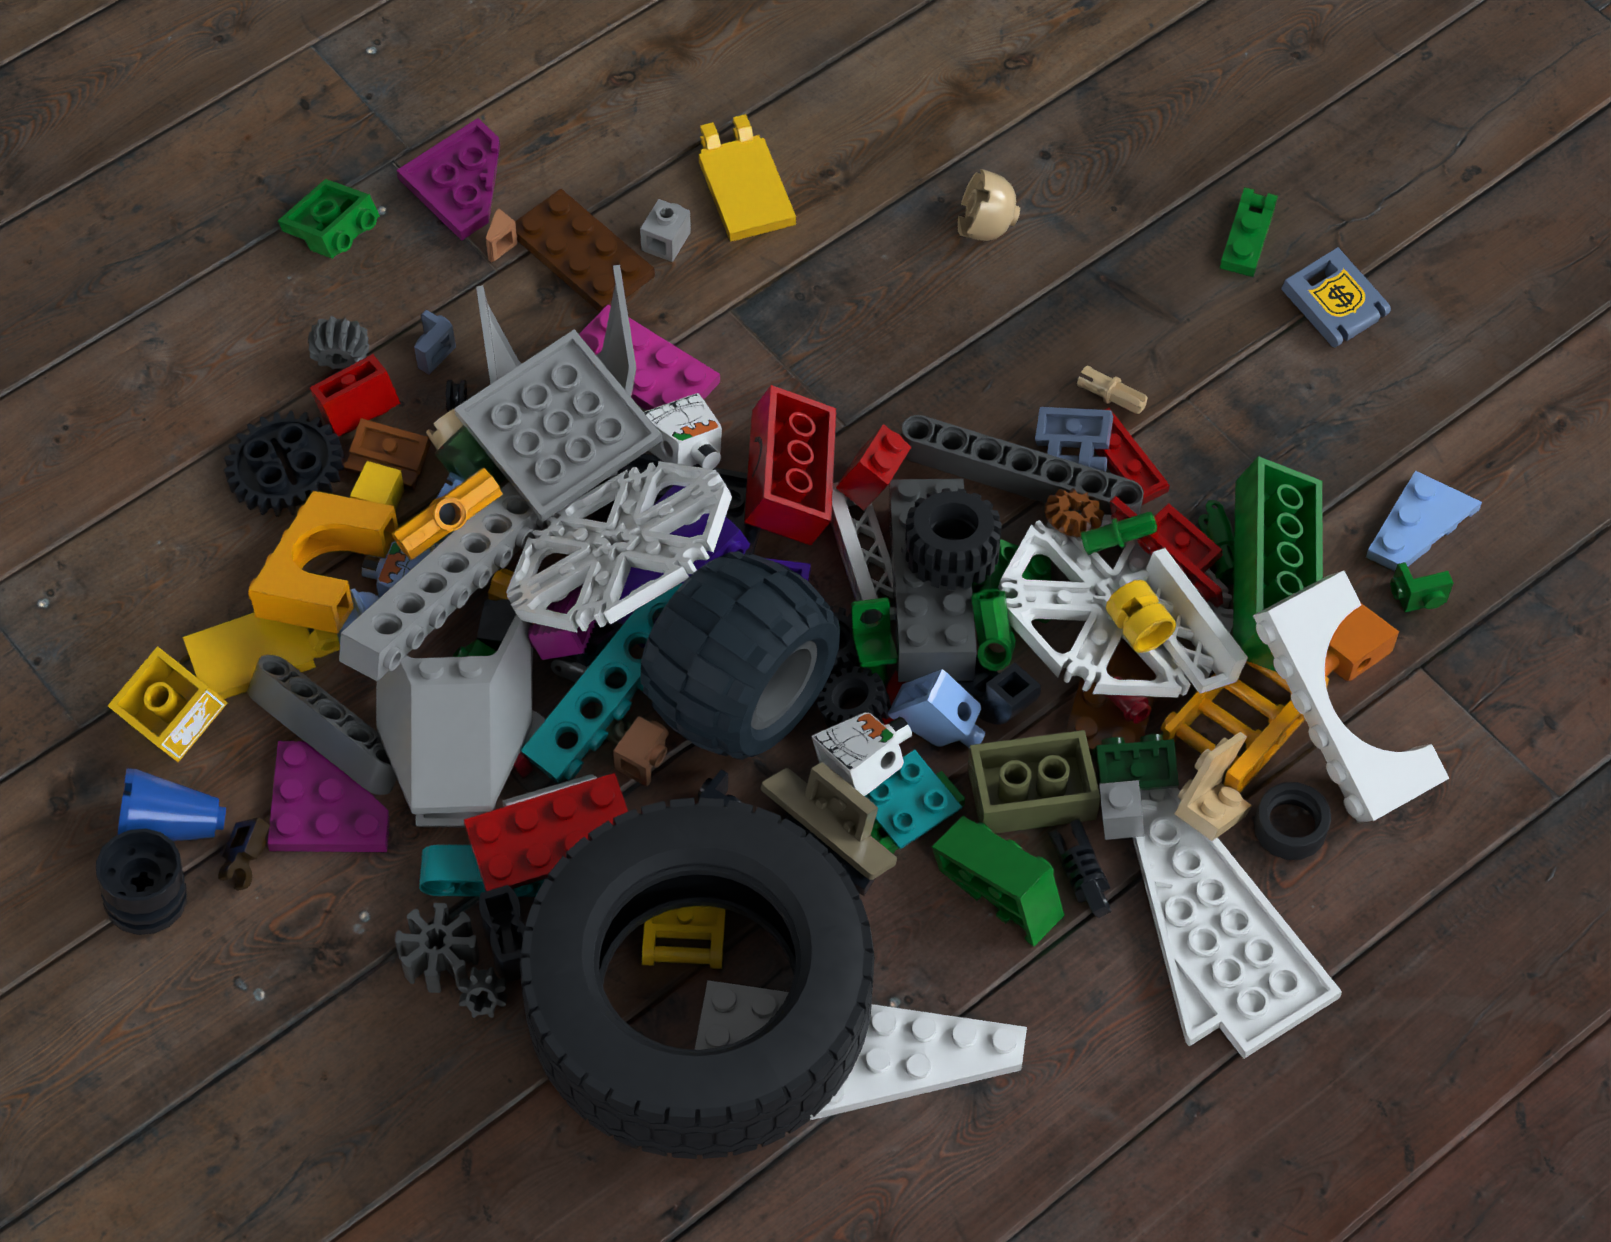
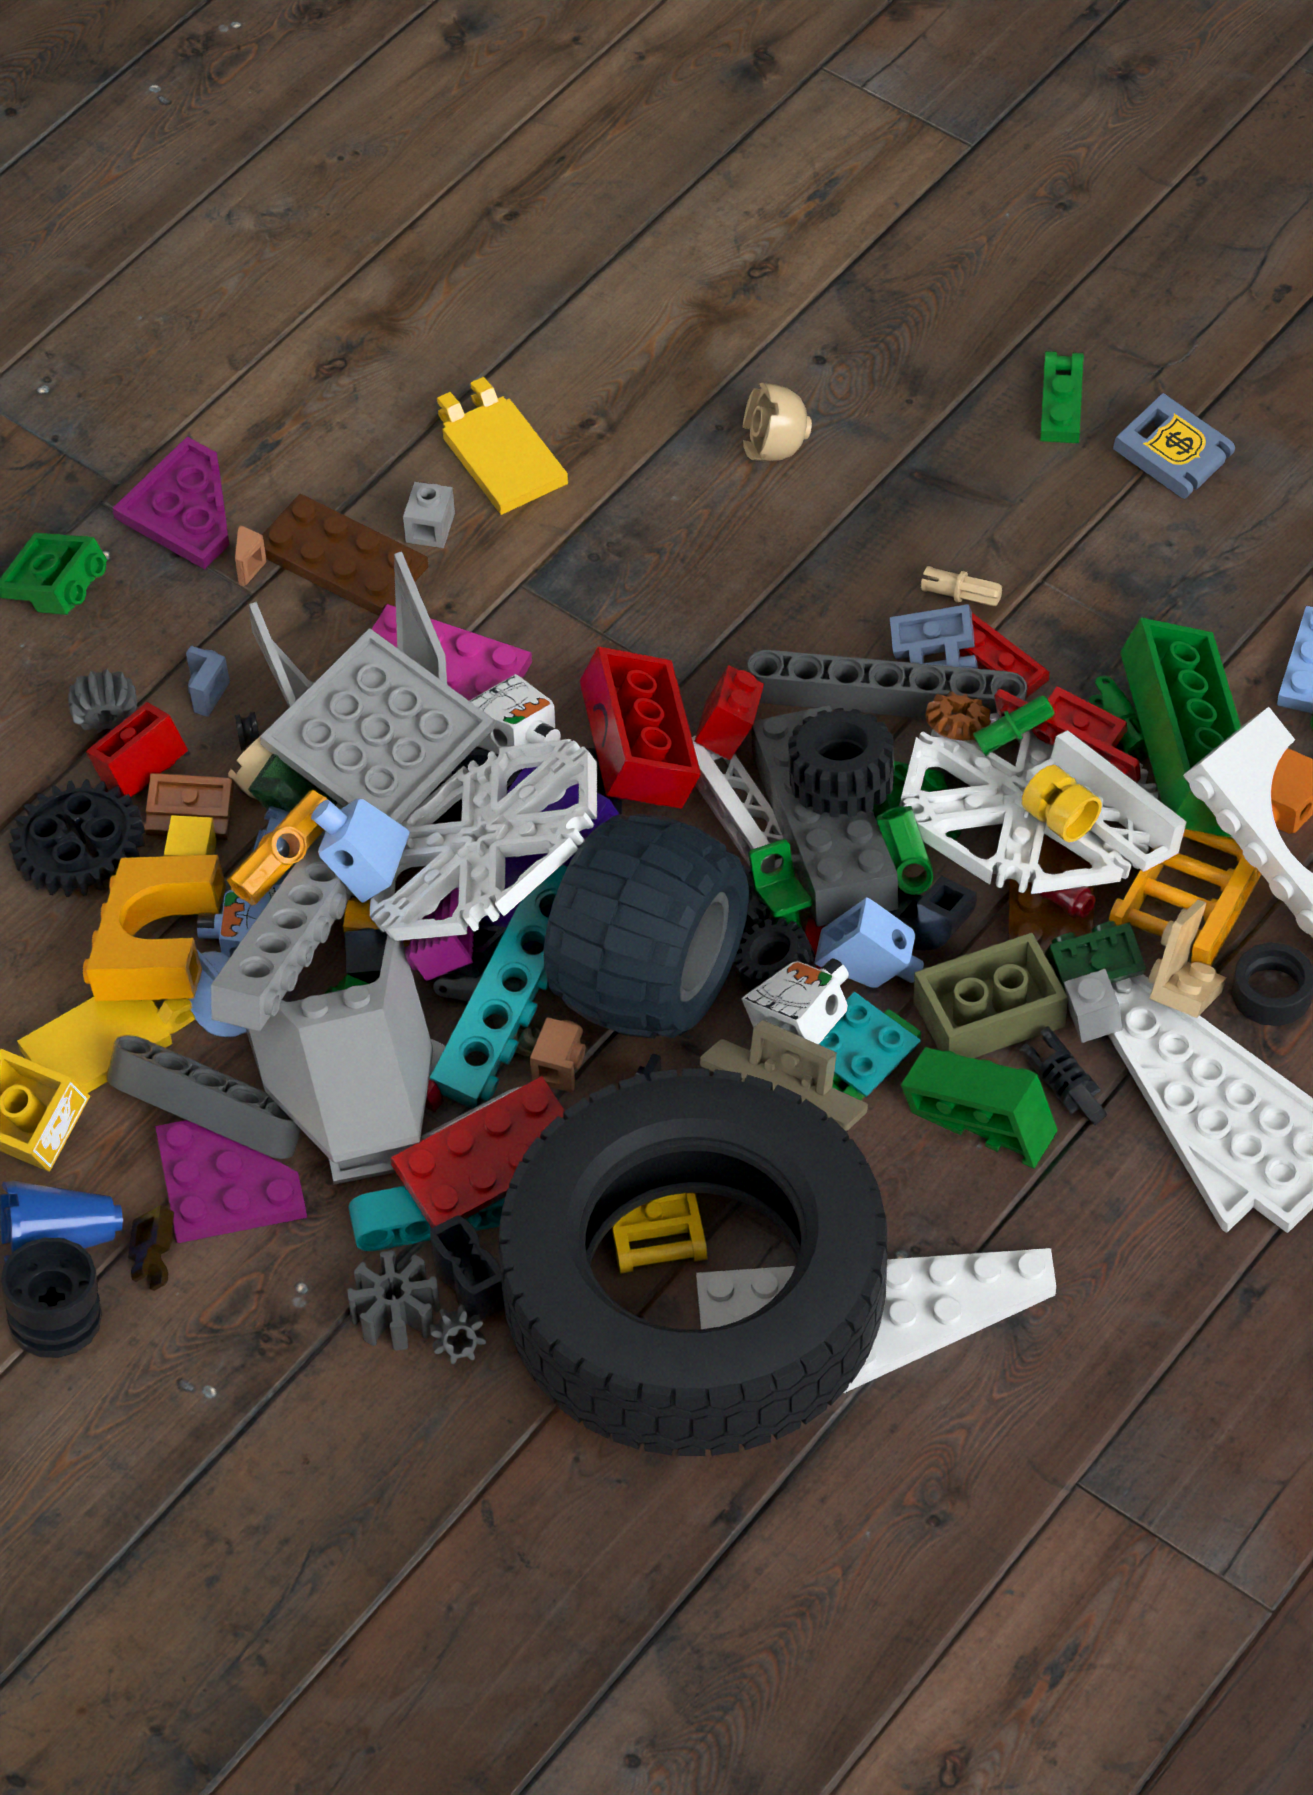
camera: 10 degrees left, 5 degrees down
(513, 527) = (360, 845): none -> light blue torso

